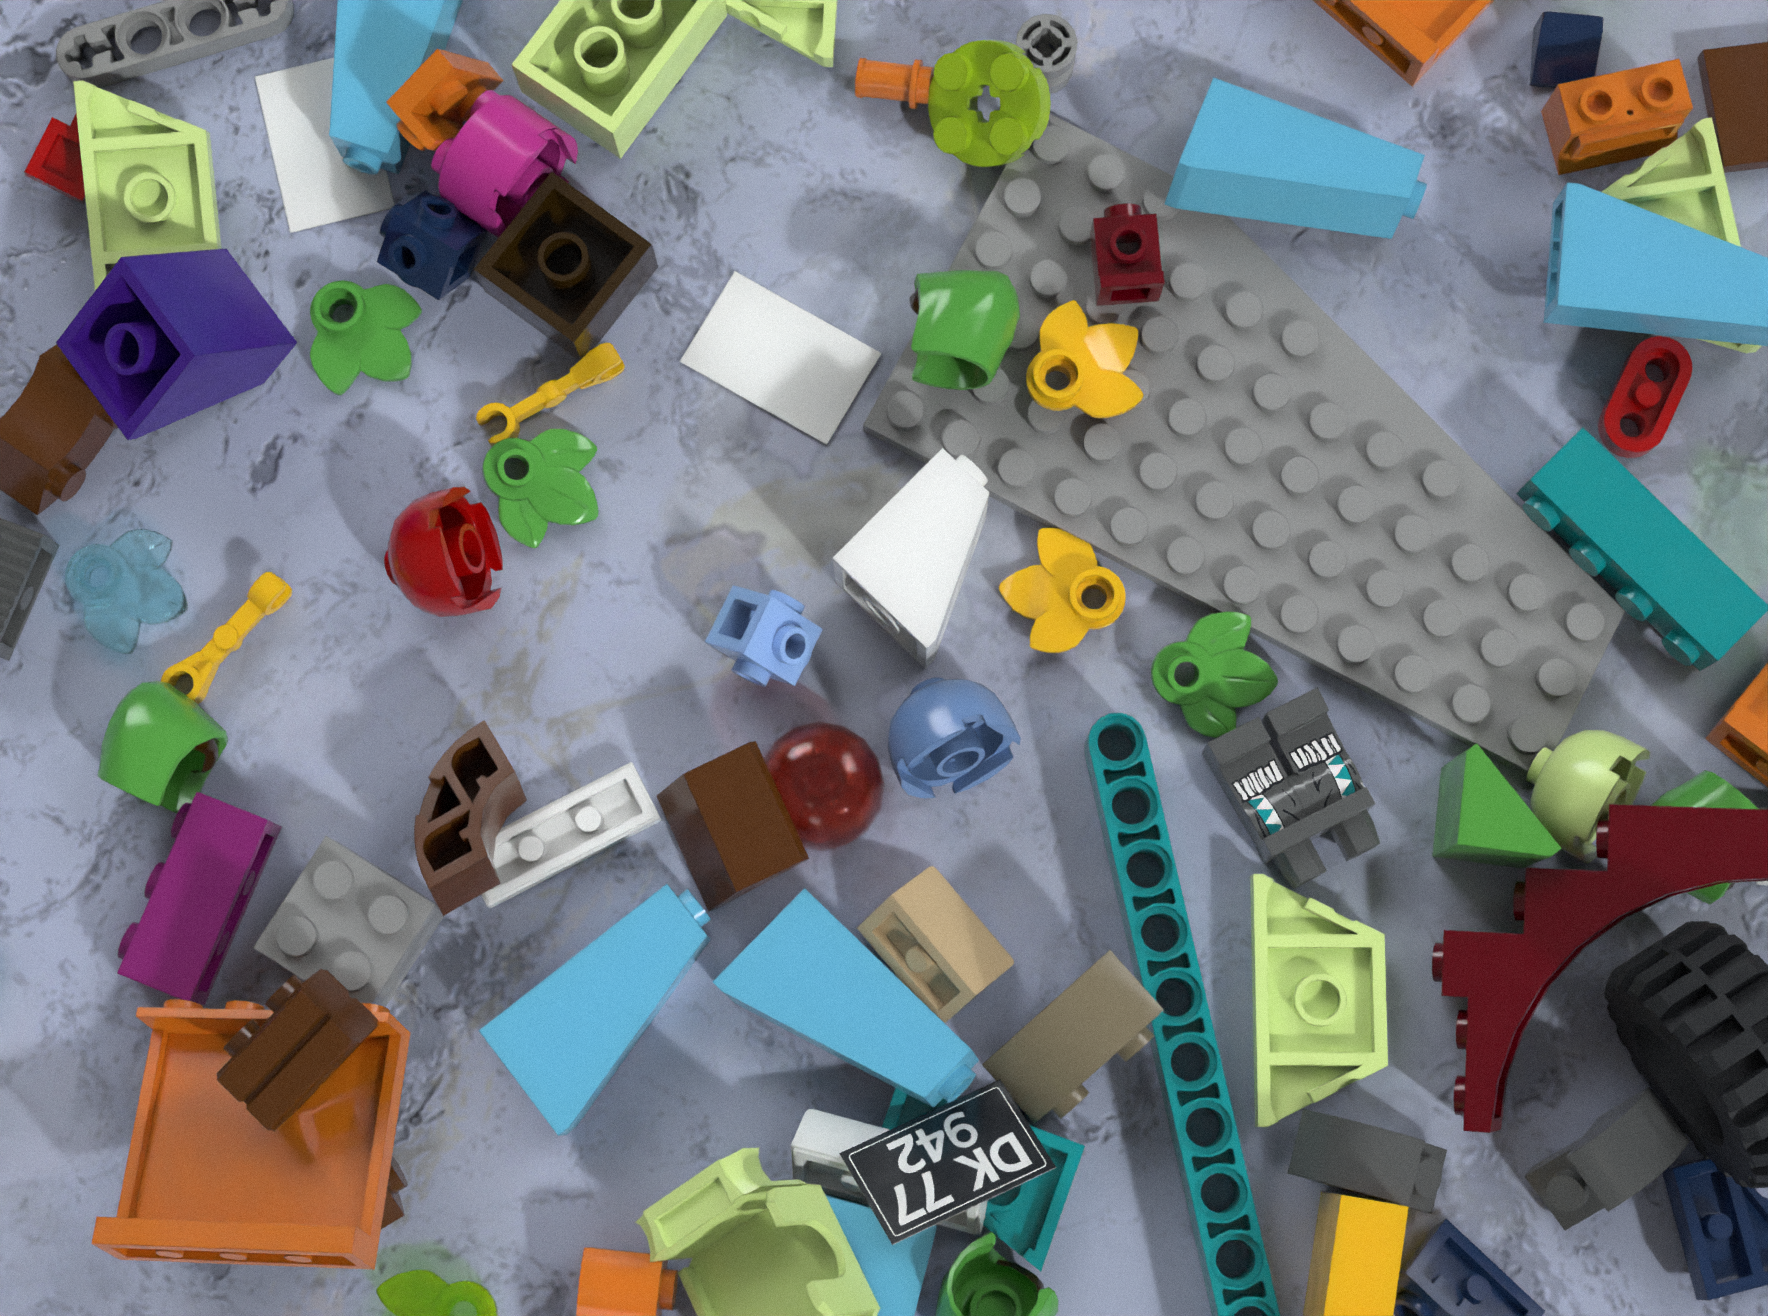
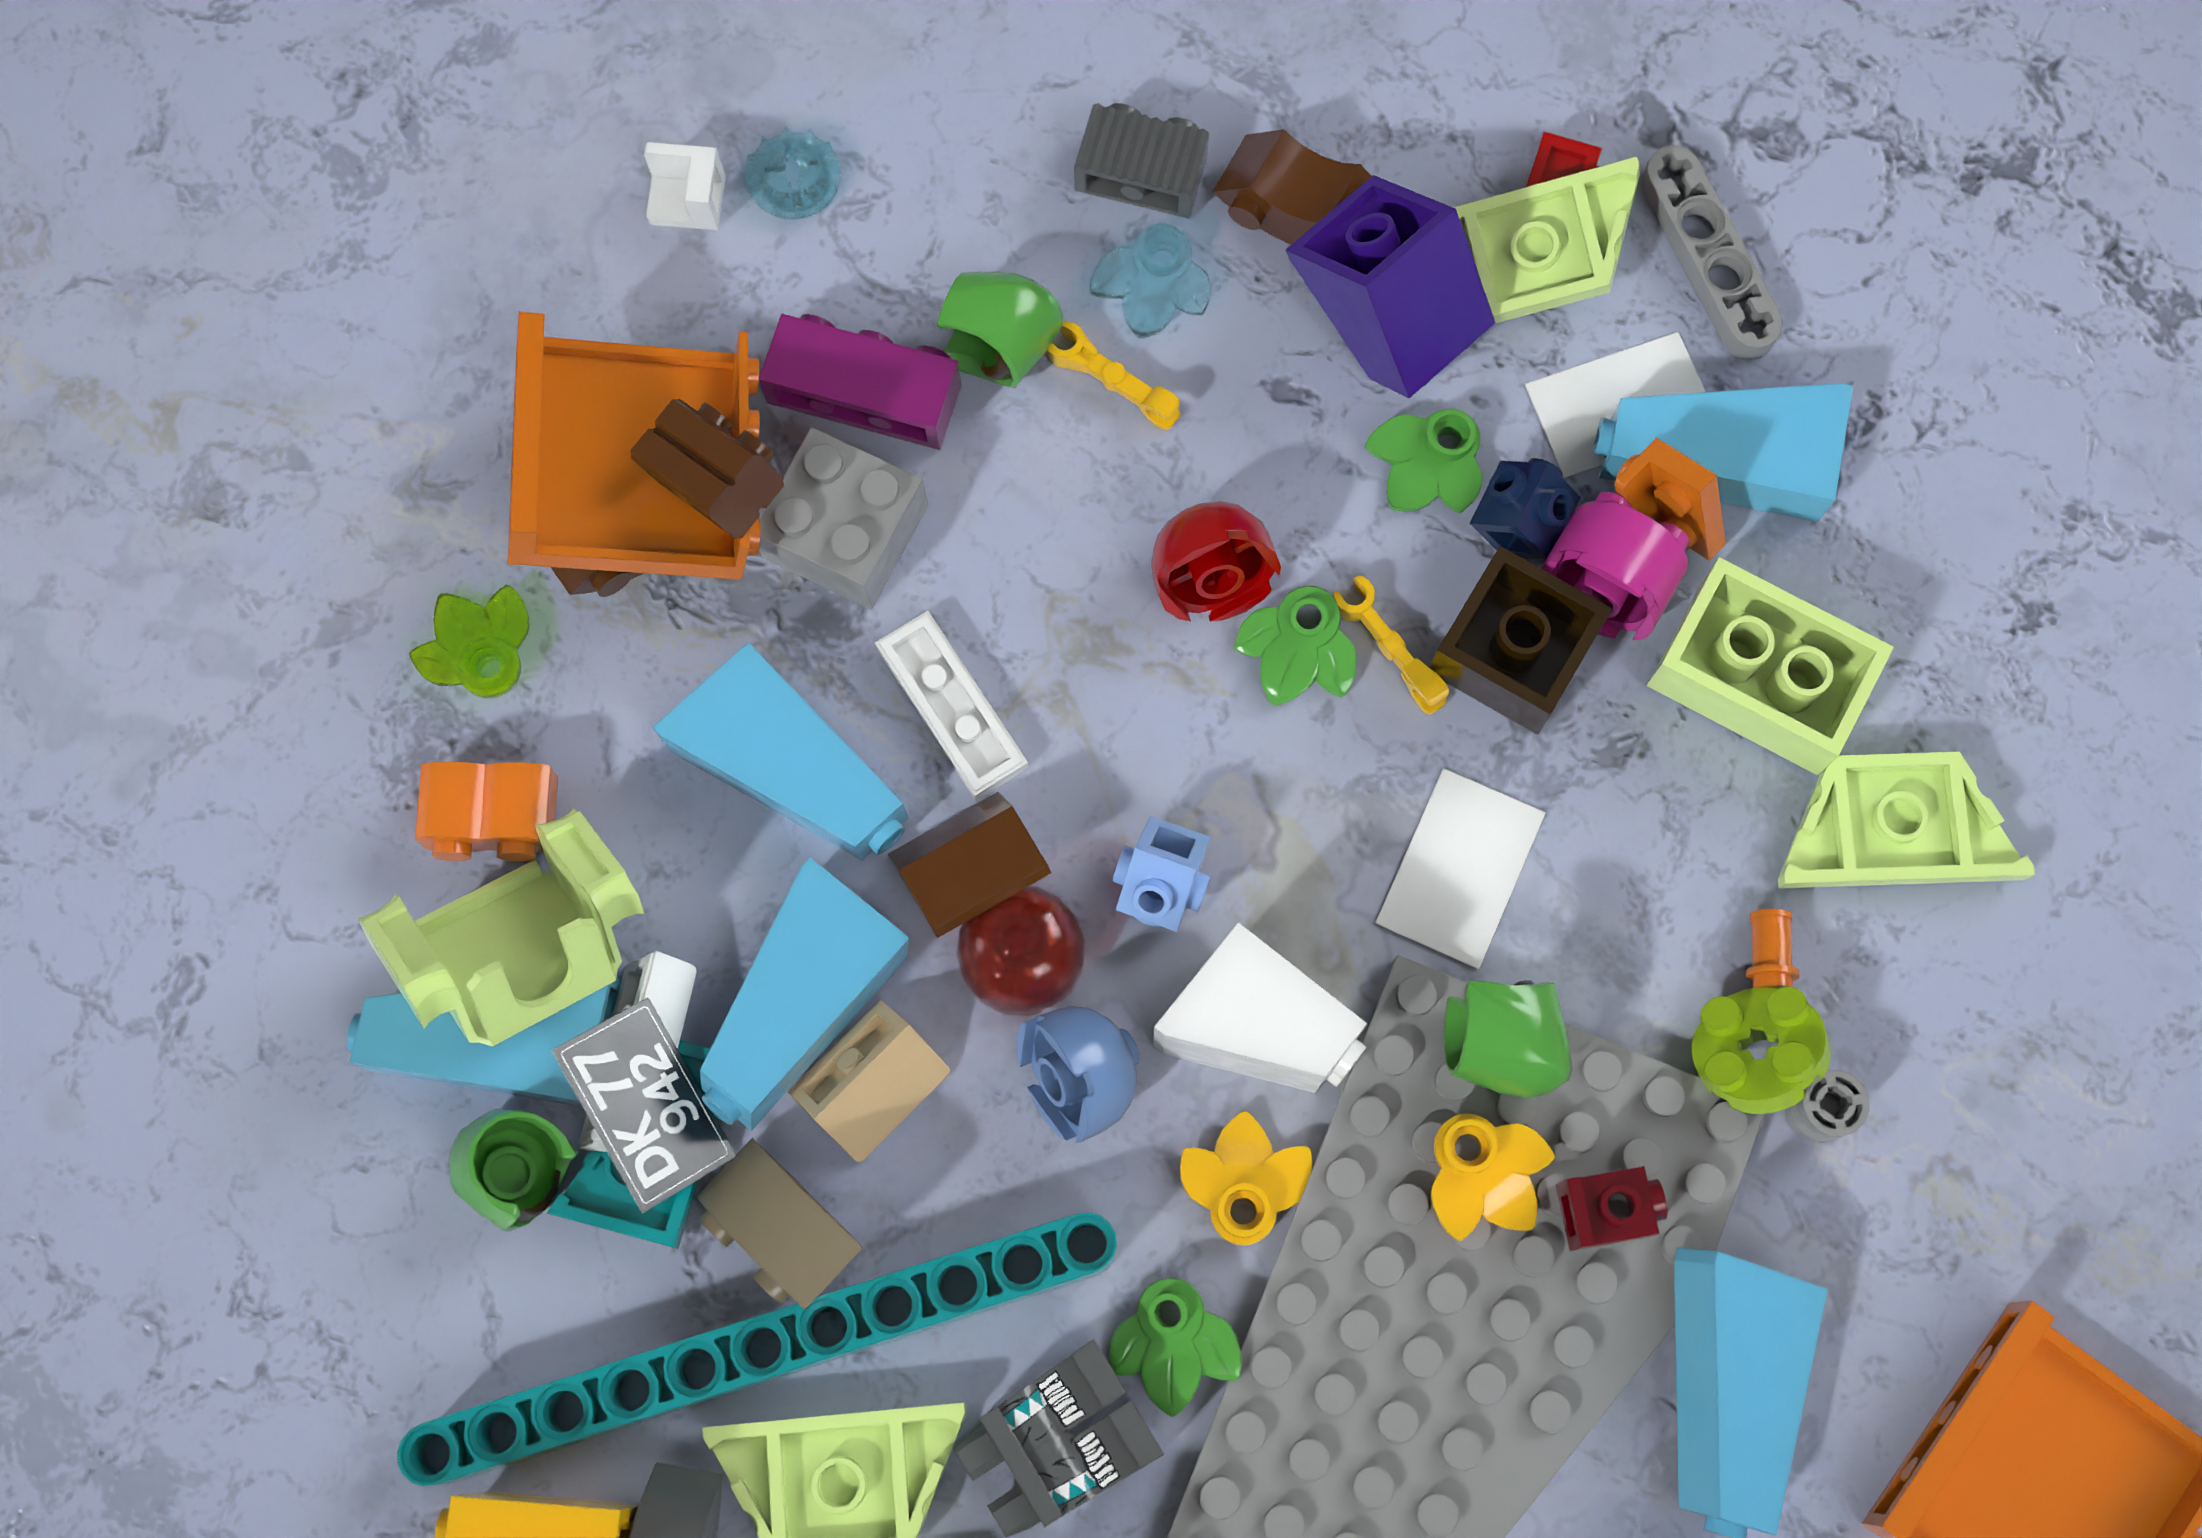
camera: 85 degrees right, 5 degrees down
(461, 816) = (951, 604): reddish brown brick -> none

